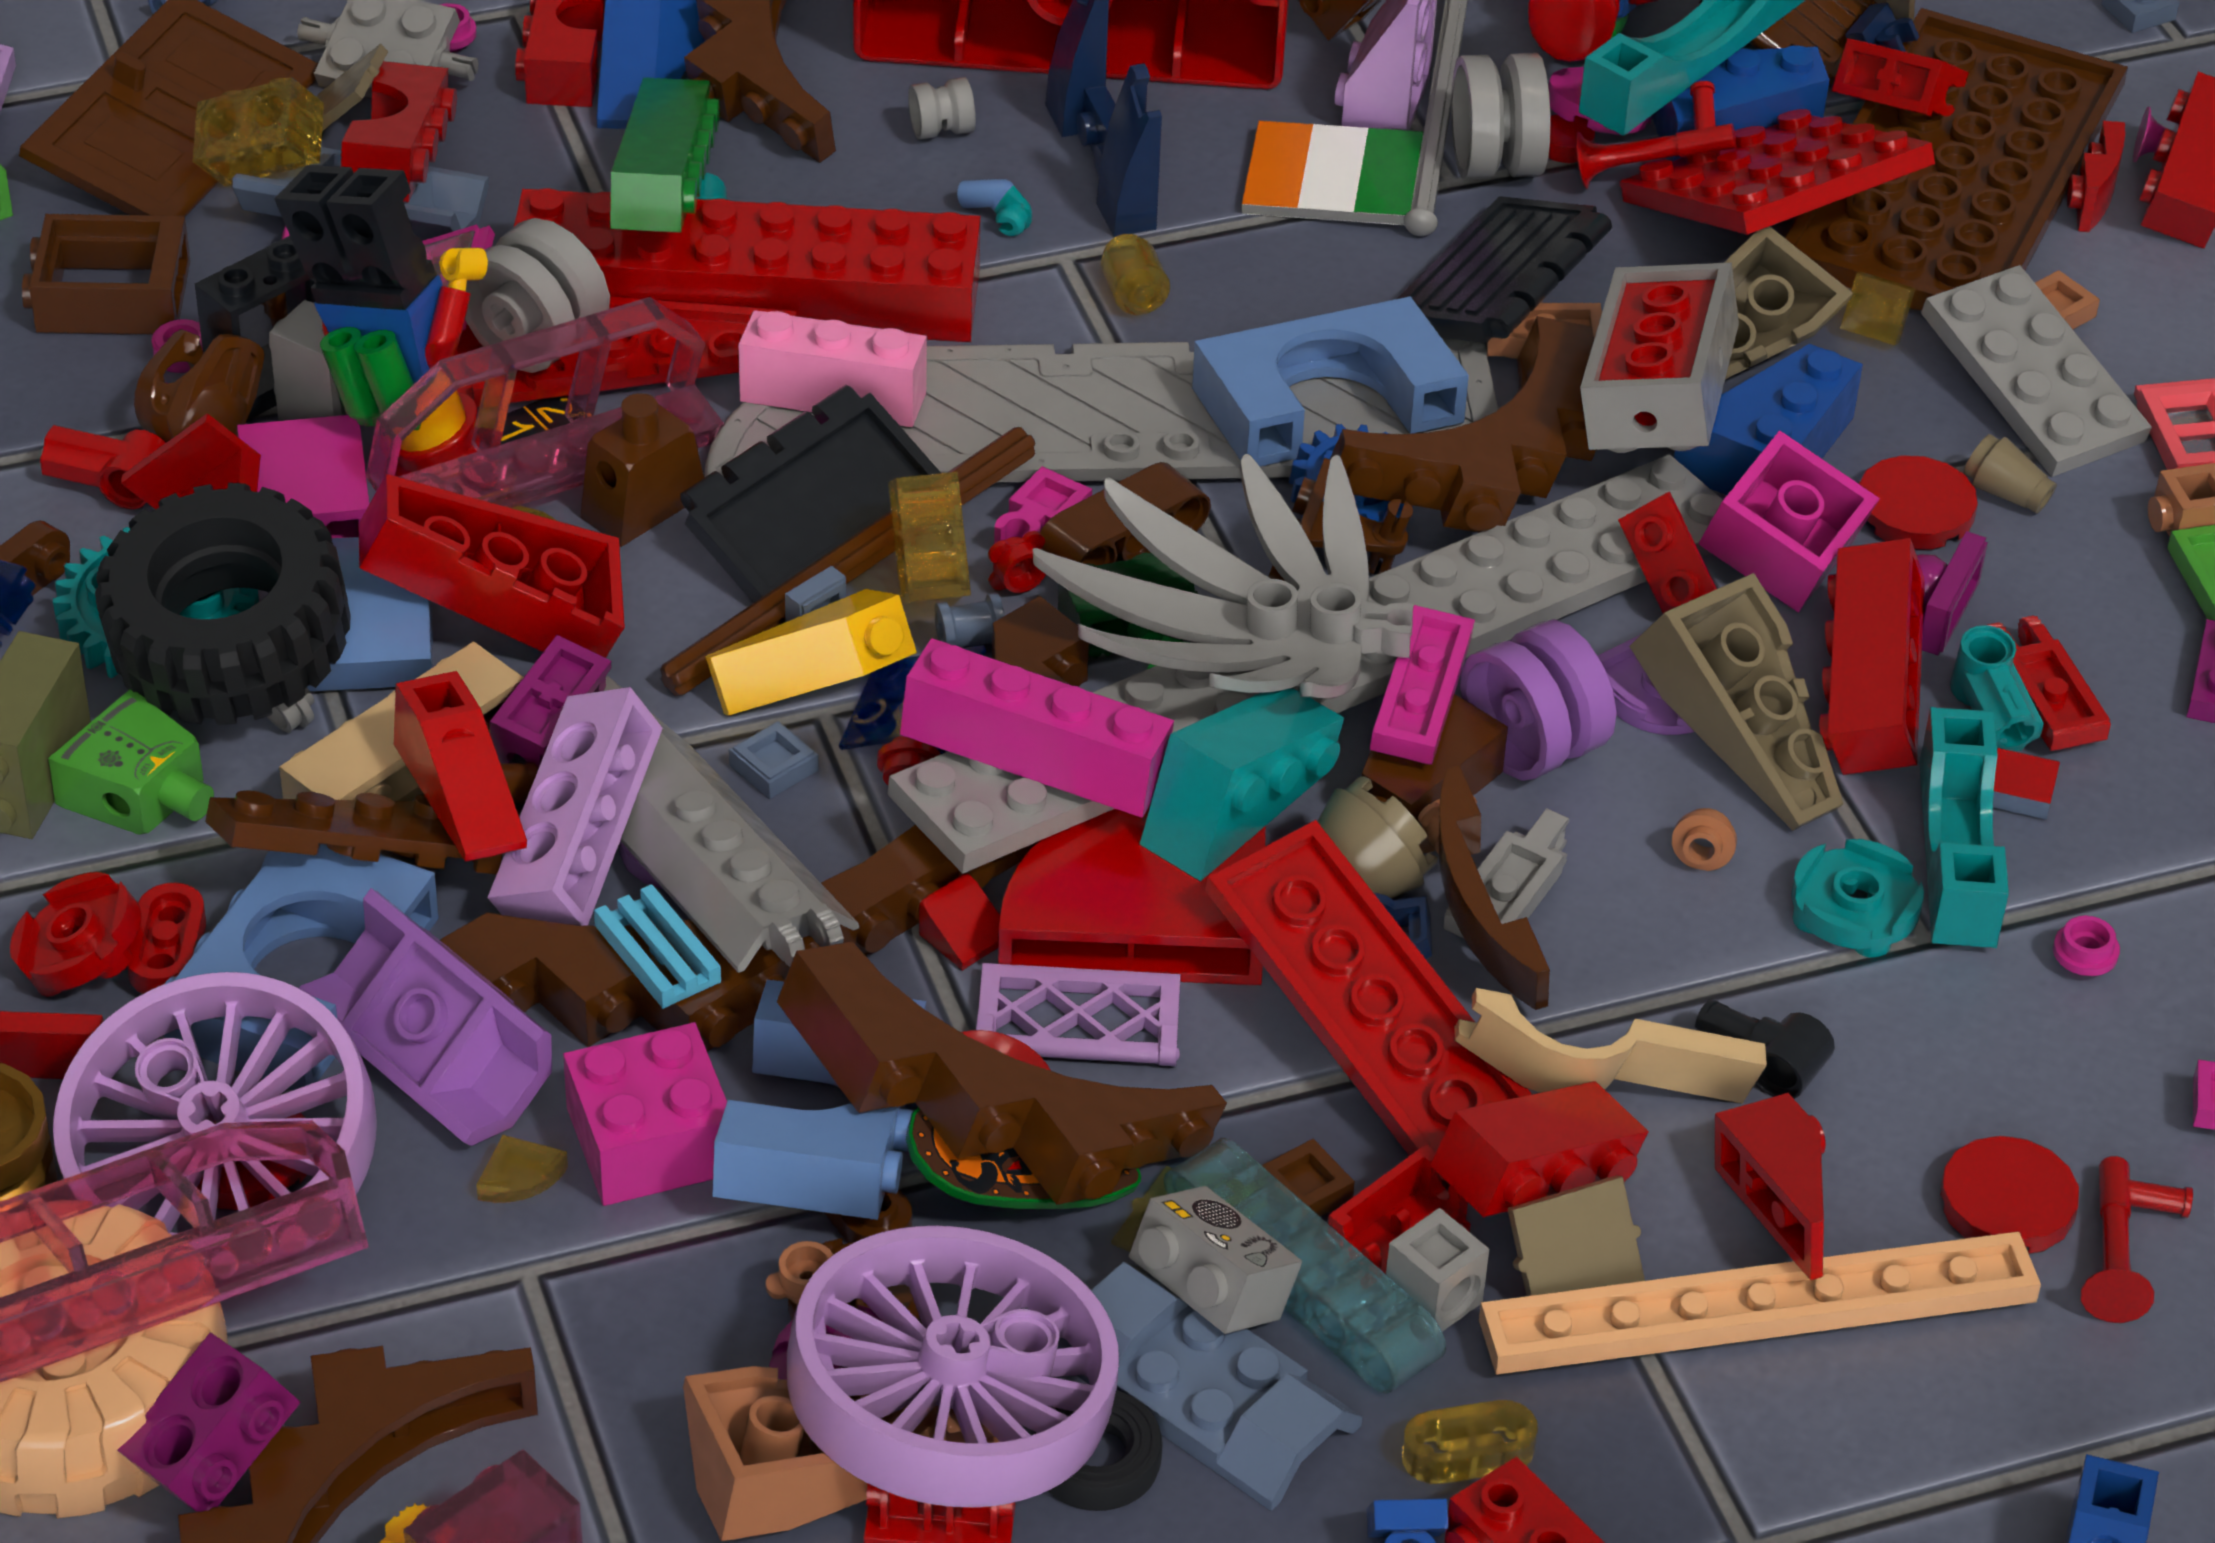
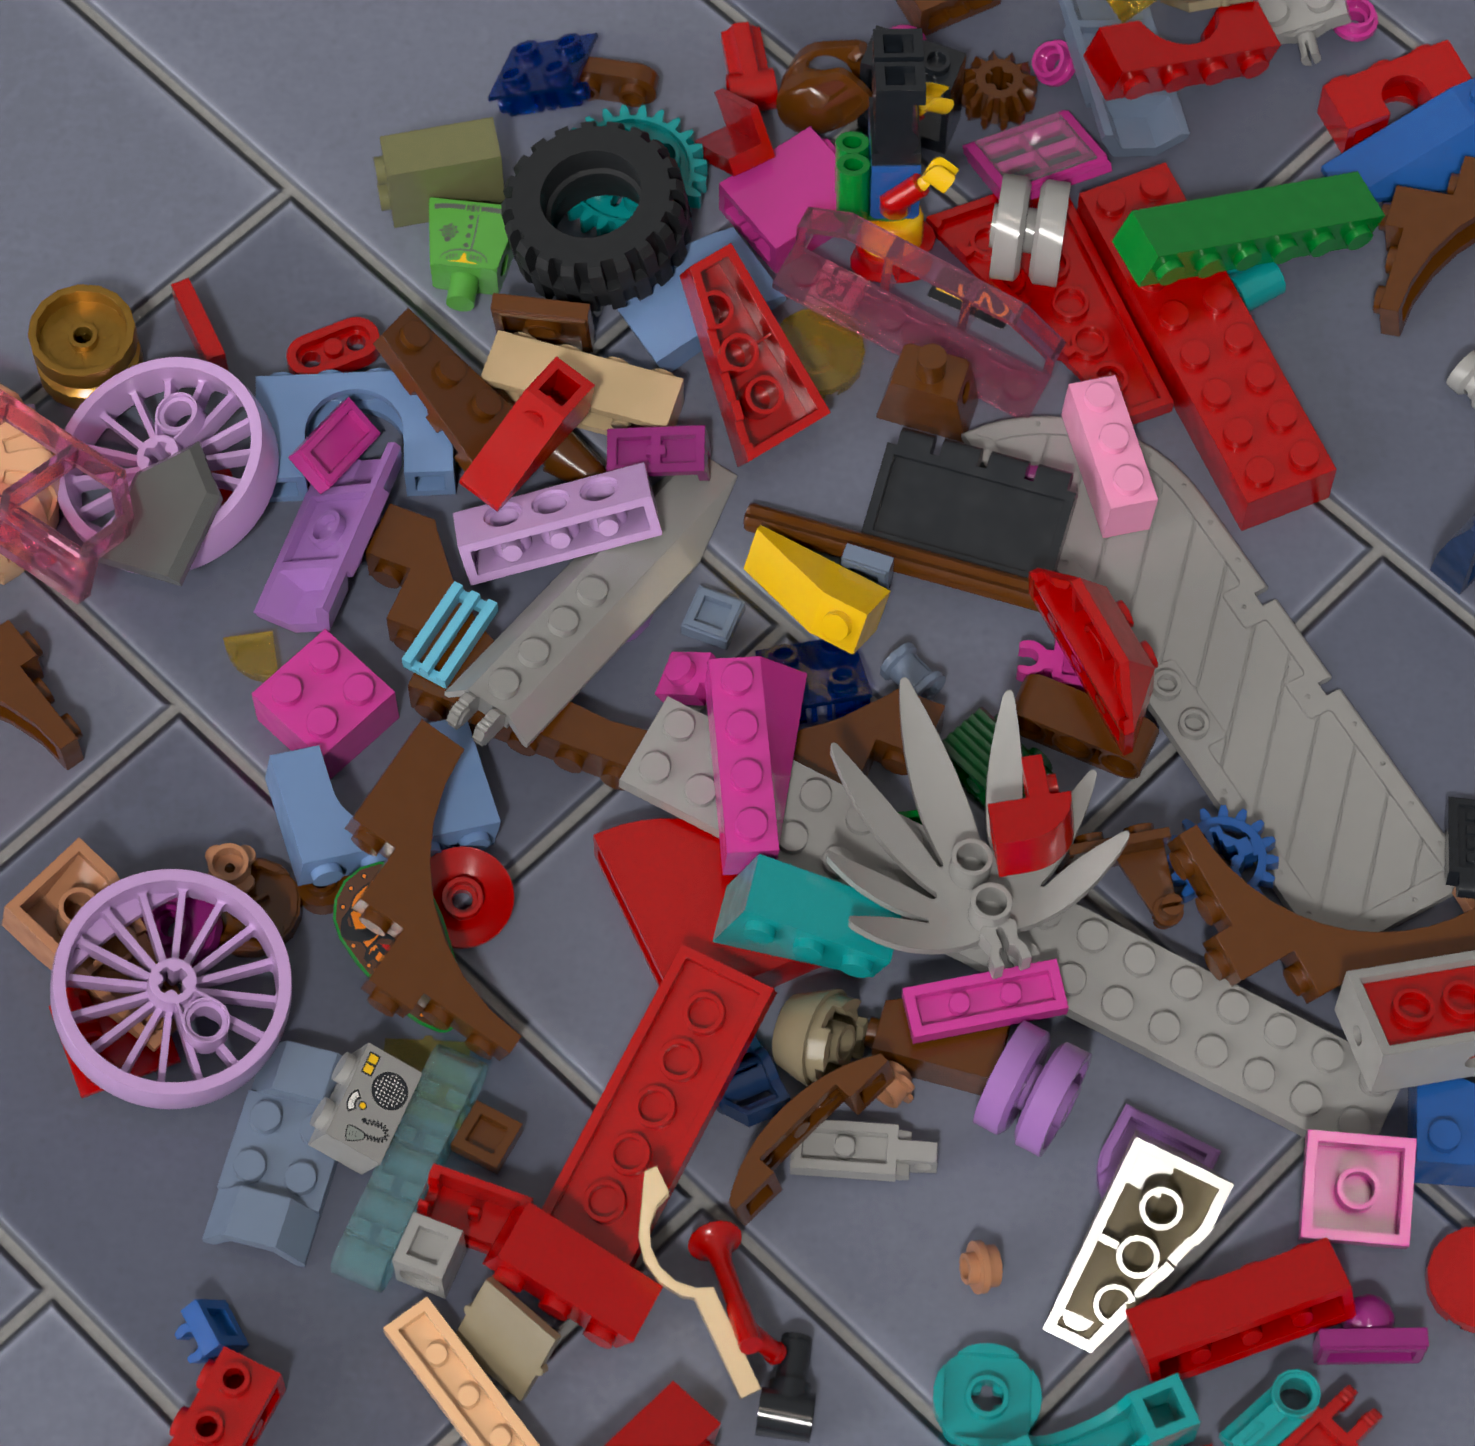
camera: 65 degrees right, 20 degrees up
(77, 934) = (322, 304): red plate -> none
(302, 717) = (545, 319): none -> reddish brown plate
(310, 967) = (334, 445): none -> dark pink tile
(318, 1087) = (172, 514): none -> dark grey tile
(848, 793) = (685, 678): none -> dark pink plate
(929, 538) = (955, 605): clear yellow brick -> none
(960, 921) = (614, 807): red slope -> none
(1004, 200) = (1406, 468): arm -> none
(1014, 563) = (994, 675): red plate -> none
(1072, 439) = (1100, 649): none -> red wedge
(1111, 988) = (598, 890): lavender window -> none
(1131, 1476) = (200, 1140): black tyre -> none
(1134, 274) = (1374, 604): clear yellow brick -> none
(1271, 518) = (1033, 829): none -> red brick
(1383, 345) = (1292, 732): medium blue arch -> none
(1468, 1440) = (323, 1334): clear yellow beam -> none
(1666, 553) = (1250, 1142): red hinge -> none
(1702, 1013) = (715, 1244): none -> red piece

